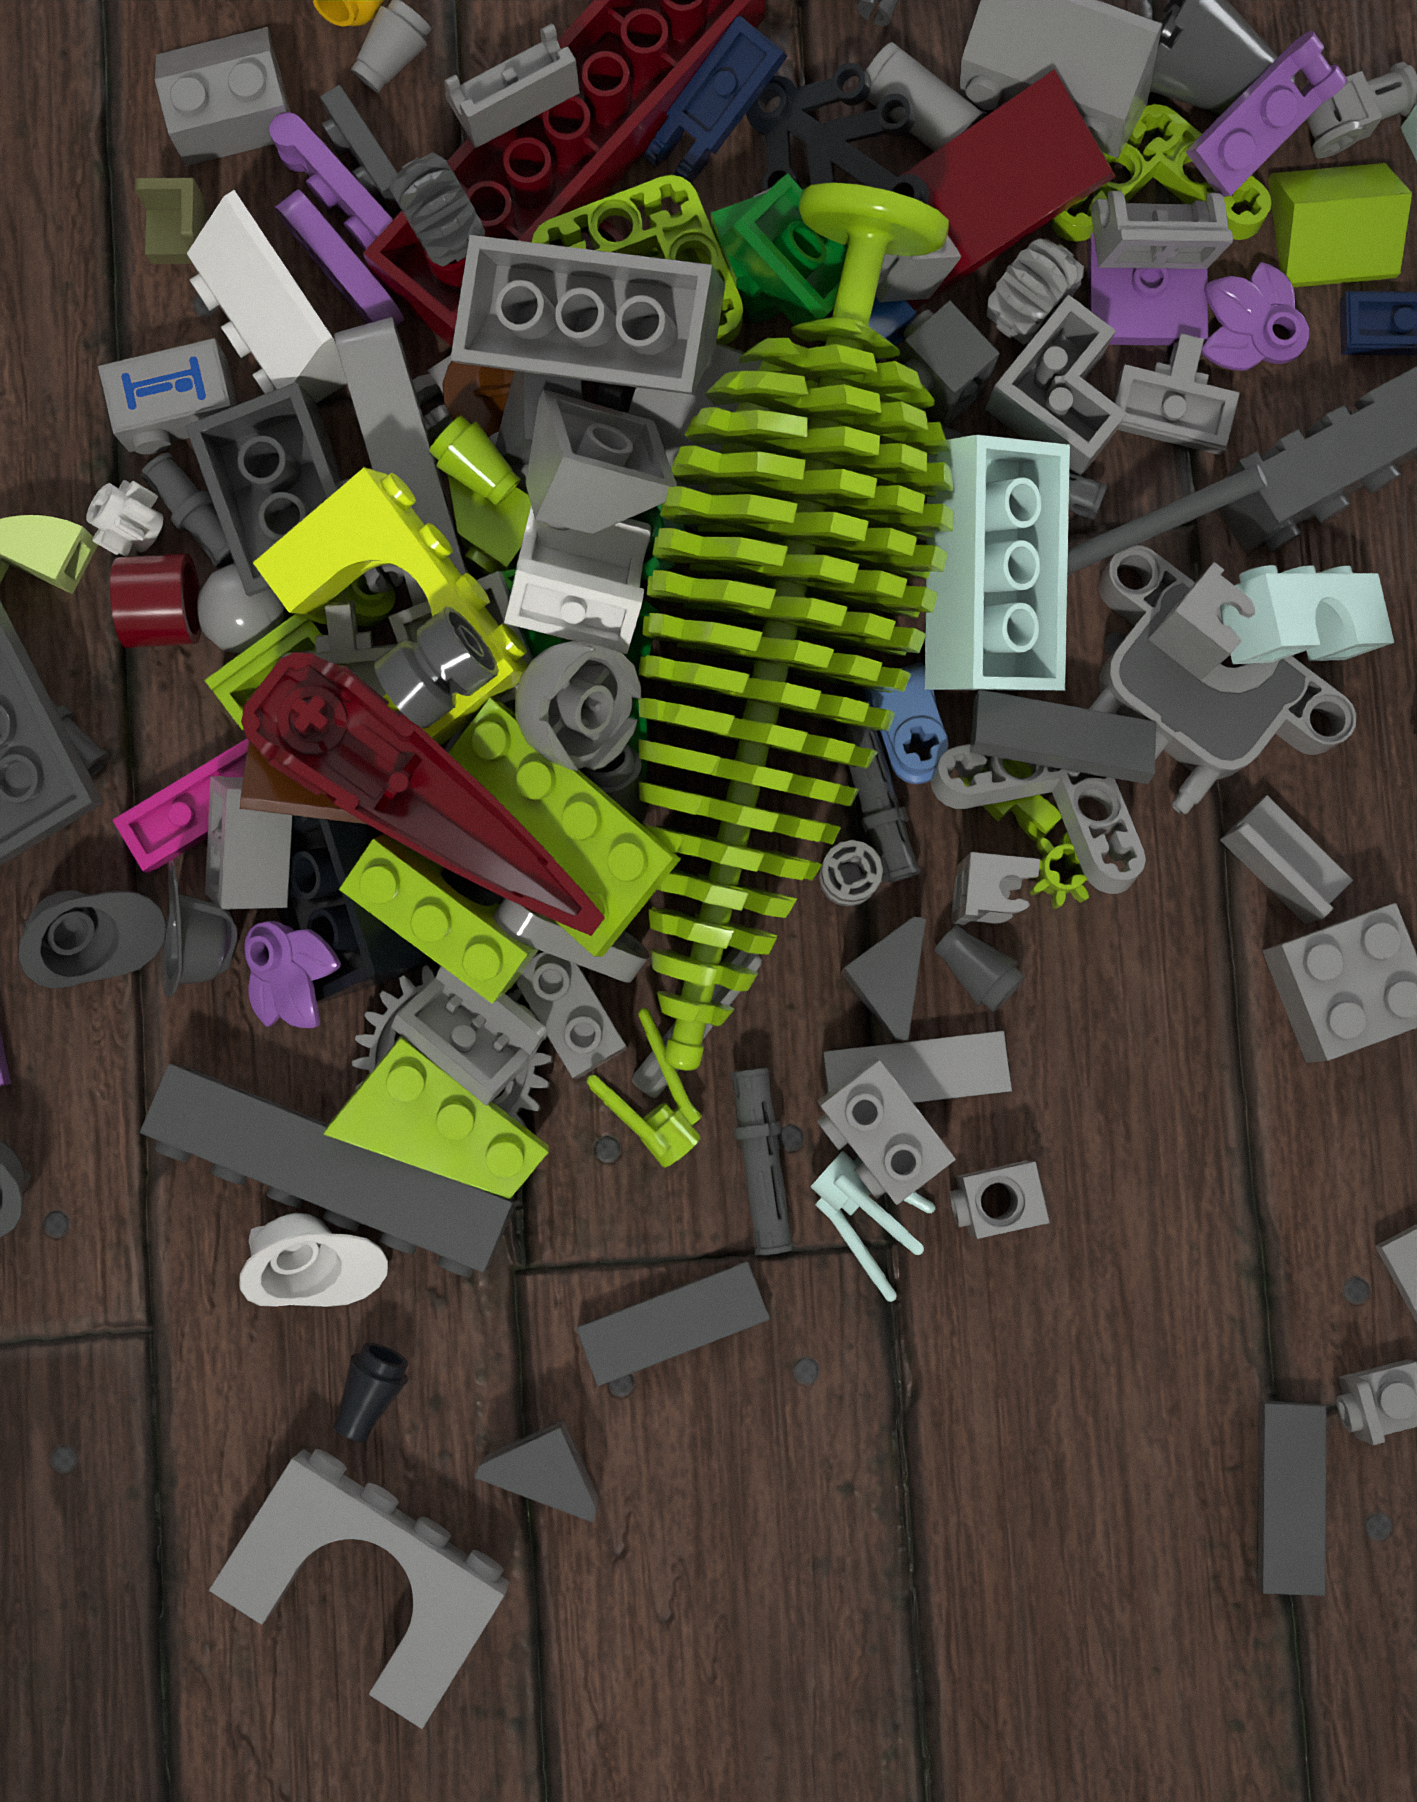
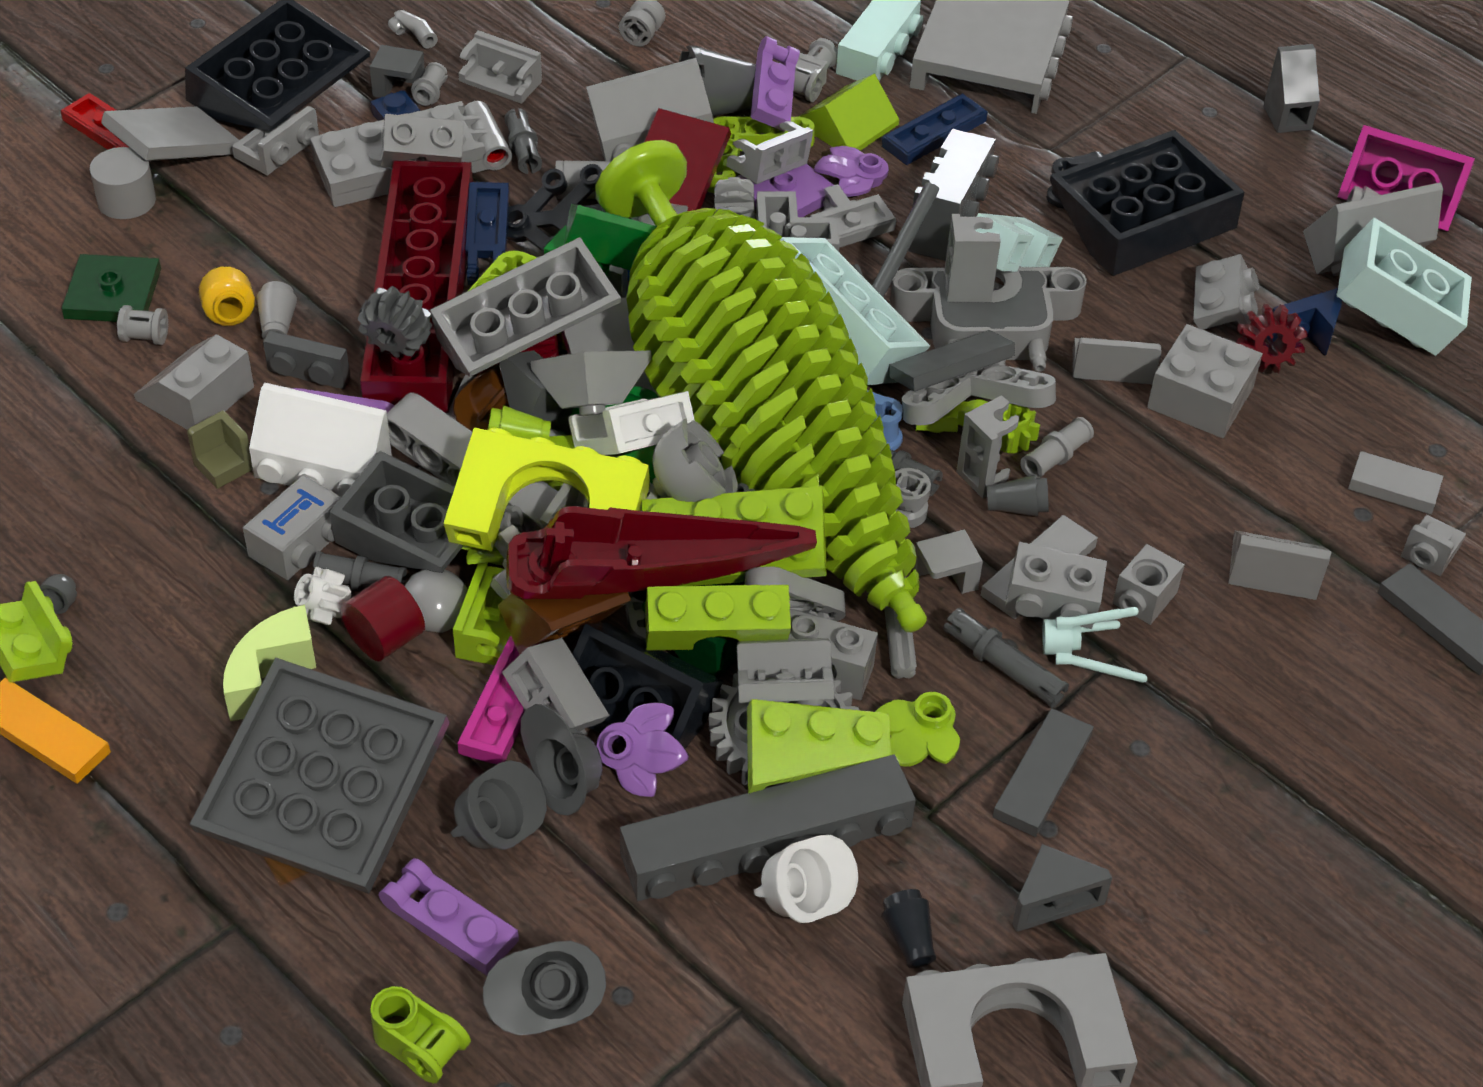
camera: 40 degrees left, 35 degrees down
(329, 178) = (302, 375): medium lavender plate -> none
(430, 672) = (609, 473): dark grey wheel -> none
(514, 89) = (383, 262): light grey hinge -> none
(584, 1174) = (916, 734): none -> lime plate
(663, 1131) = (938, 670): lime plant -> none
(808, 997) = (948, 556): none -> light grey panel
(888, 977) = (986, 526): dark grey slope -> none
(1088, 935) = (1057, 447): none -> light grey pin
(1185, 1280) = (1277, 565): none -> light grey slope

